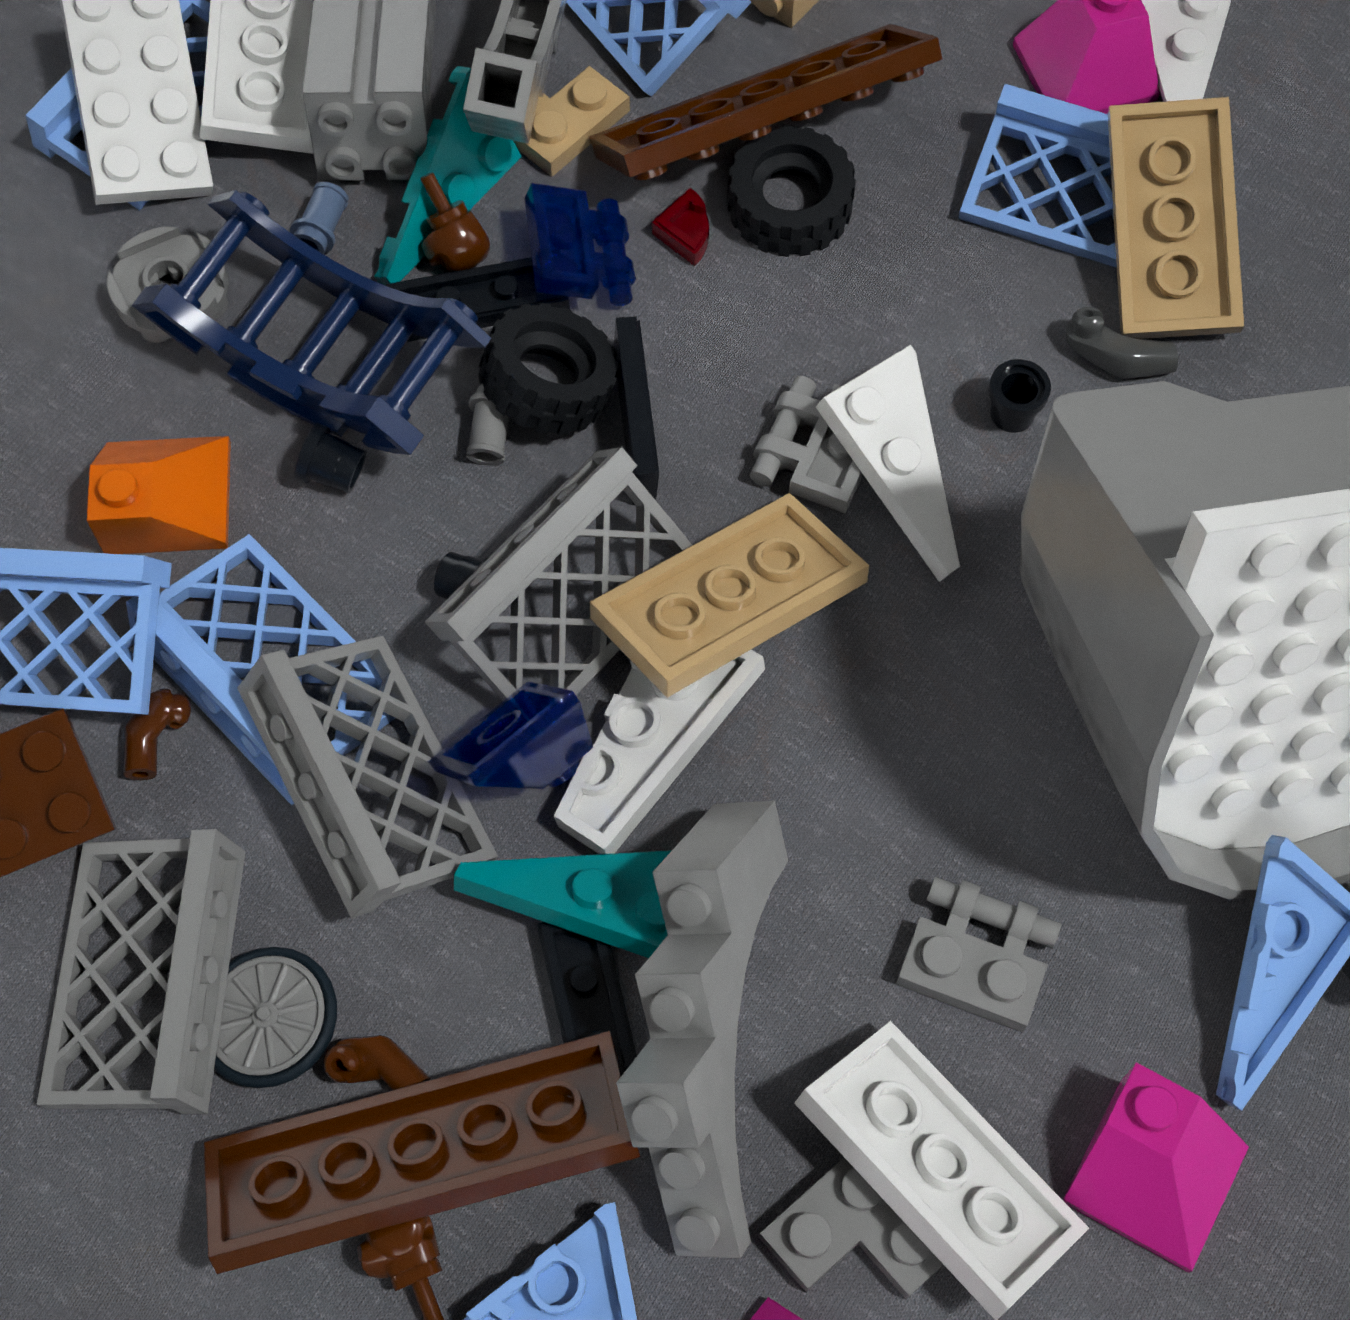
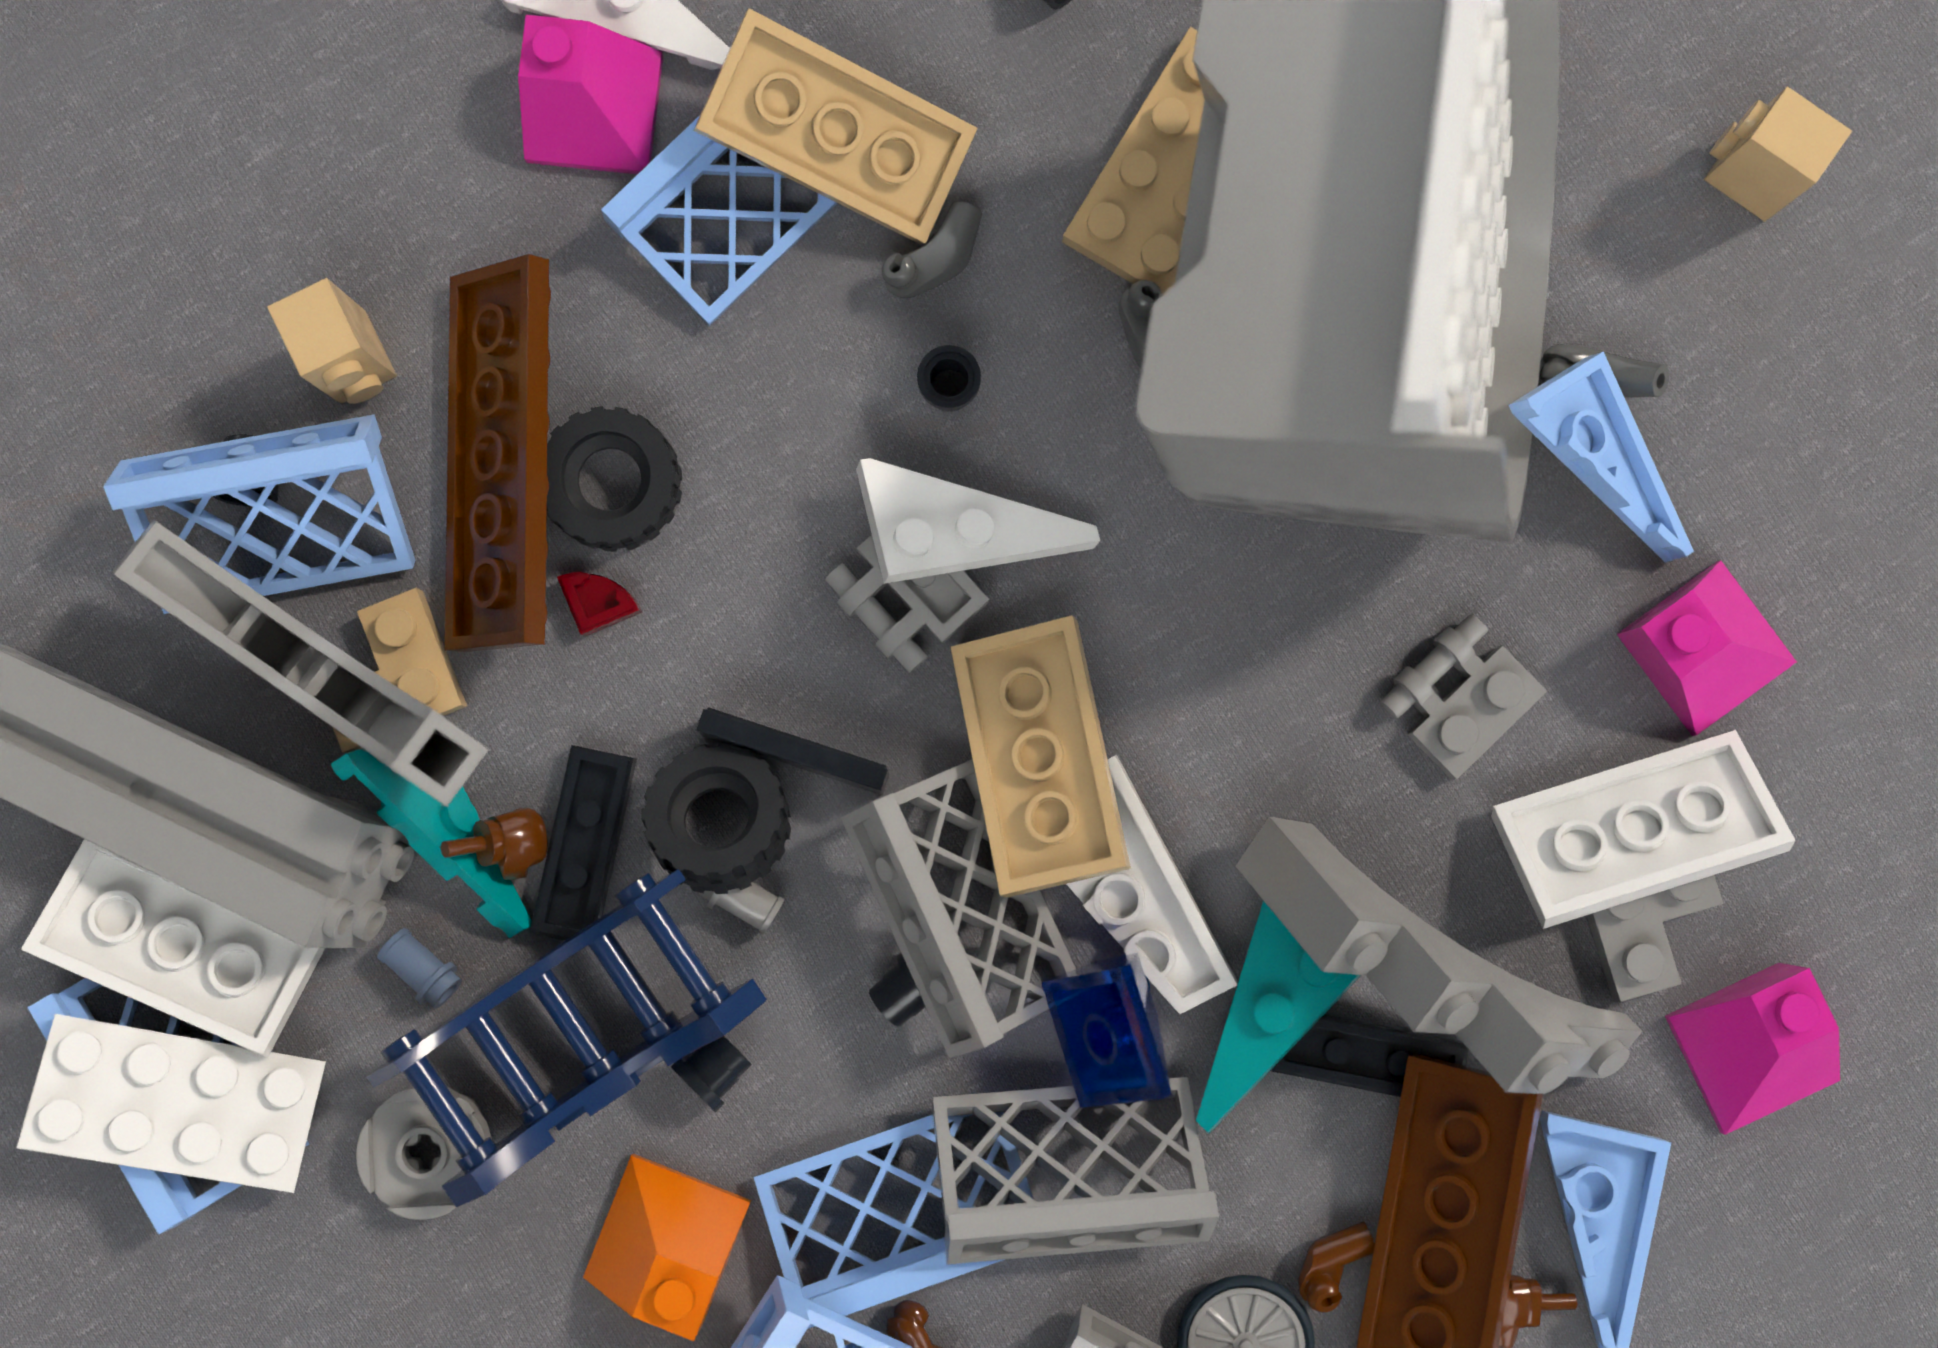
camera: 65 degrees left, 20 degrees up
(563, 244) = (574, 738): clear blue plate -> none

